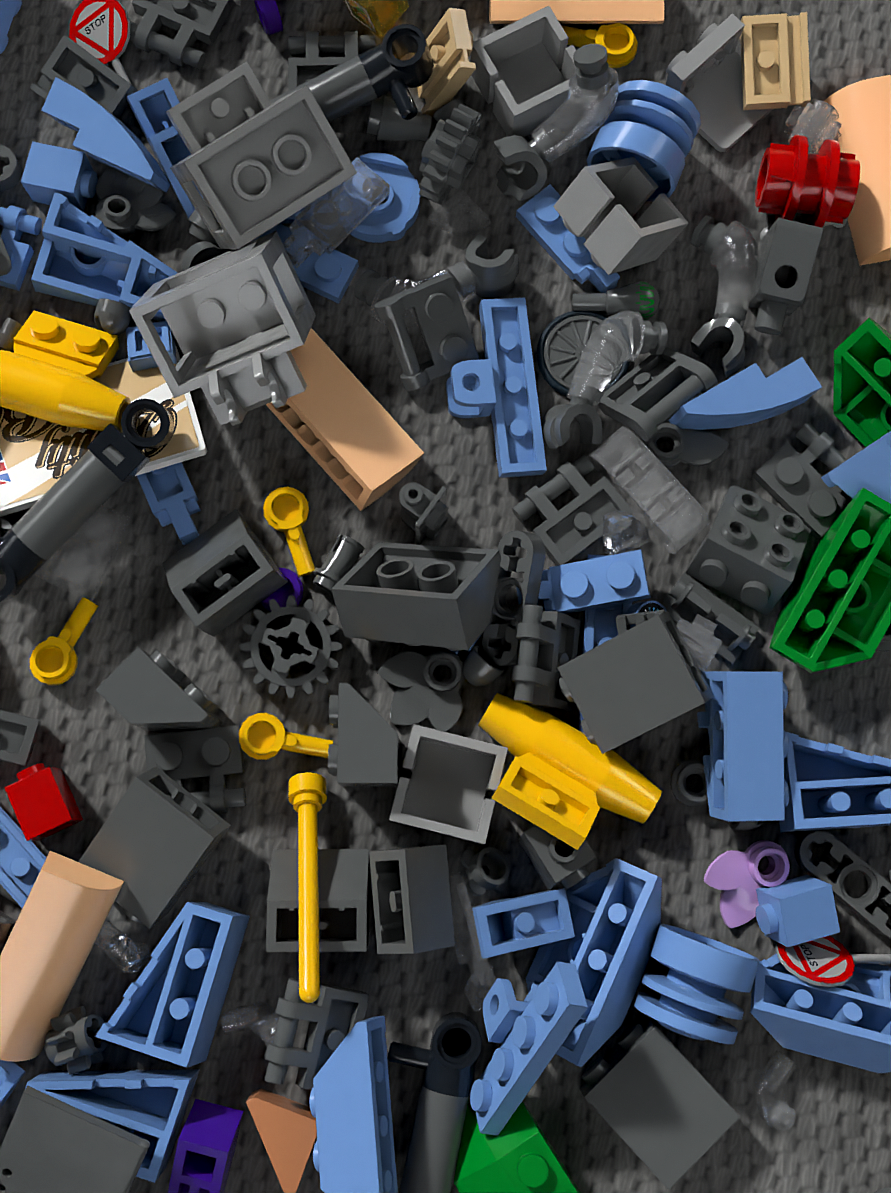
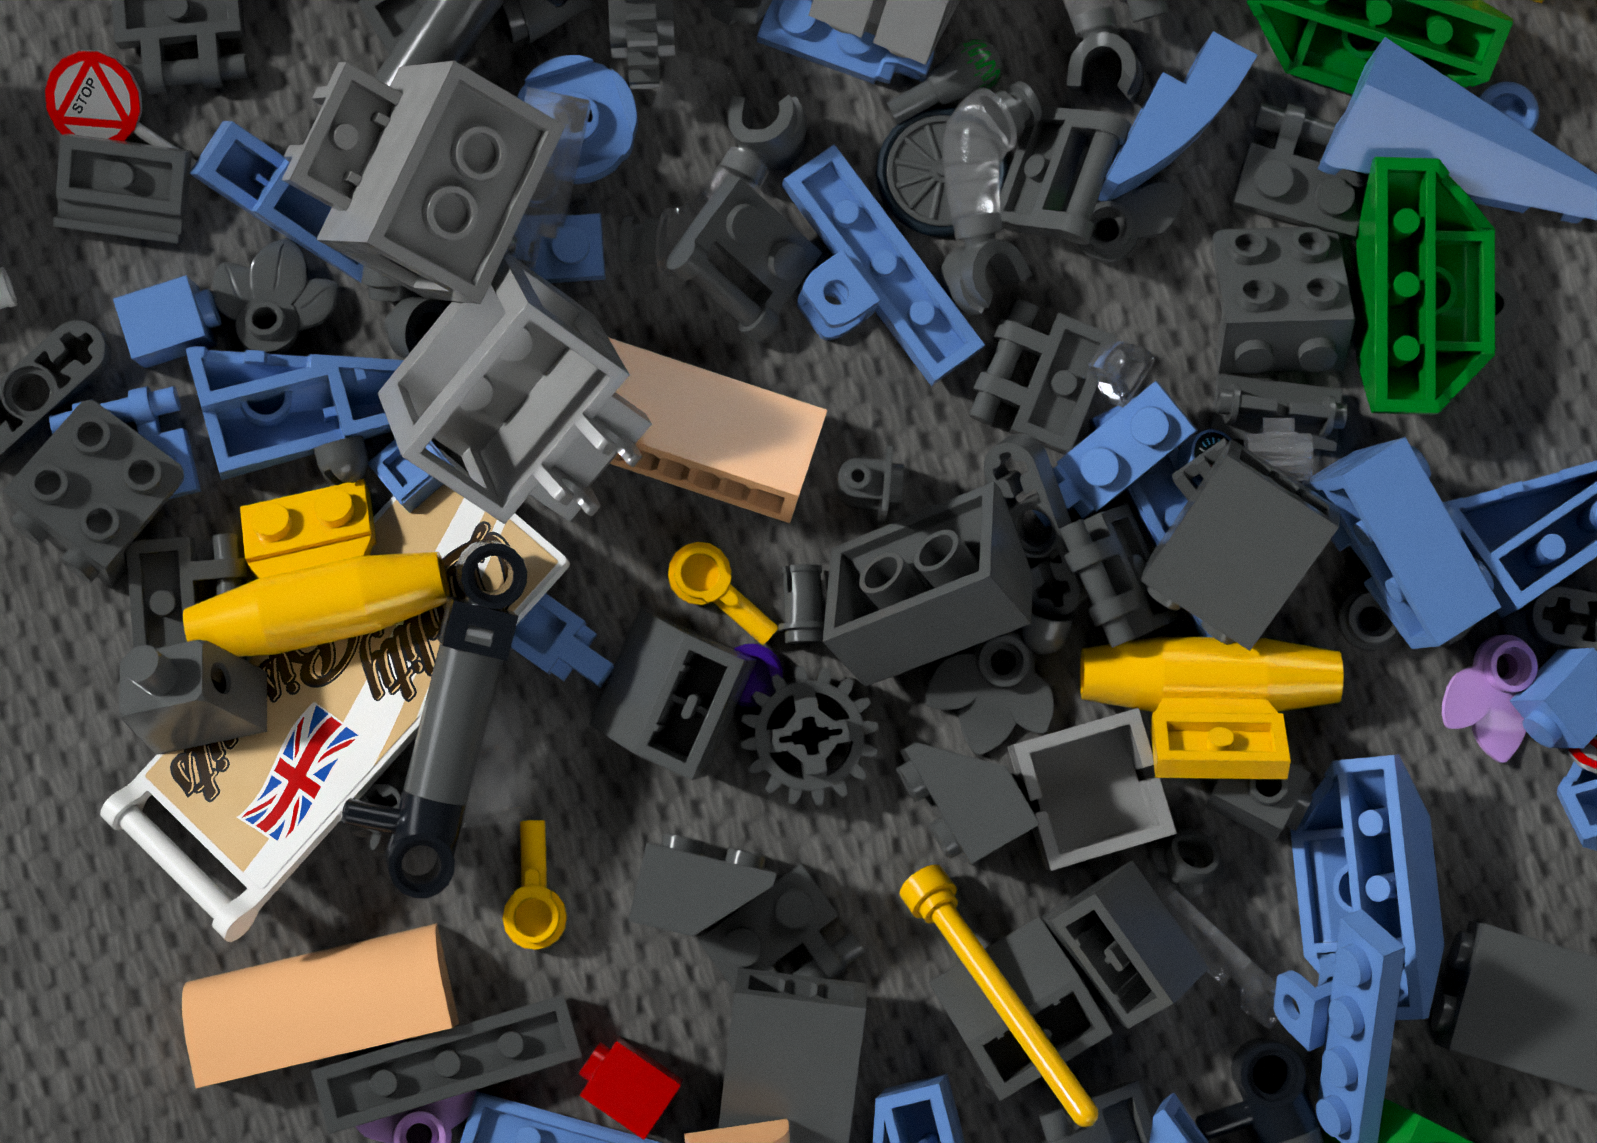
camera: 30 degrees left, 5 degrees up
(102, 134) = (196, 238): medium blue slope -> none
(264, 737) = (839, 858): yellow plate -> none
(523, 922) = (1268, 895): medium blue slope -> none
(650, 489) = (1119, 296): clear beam -> none
(696, 984) = (1503, 849): medium blue wheel -> none

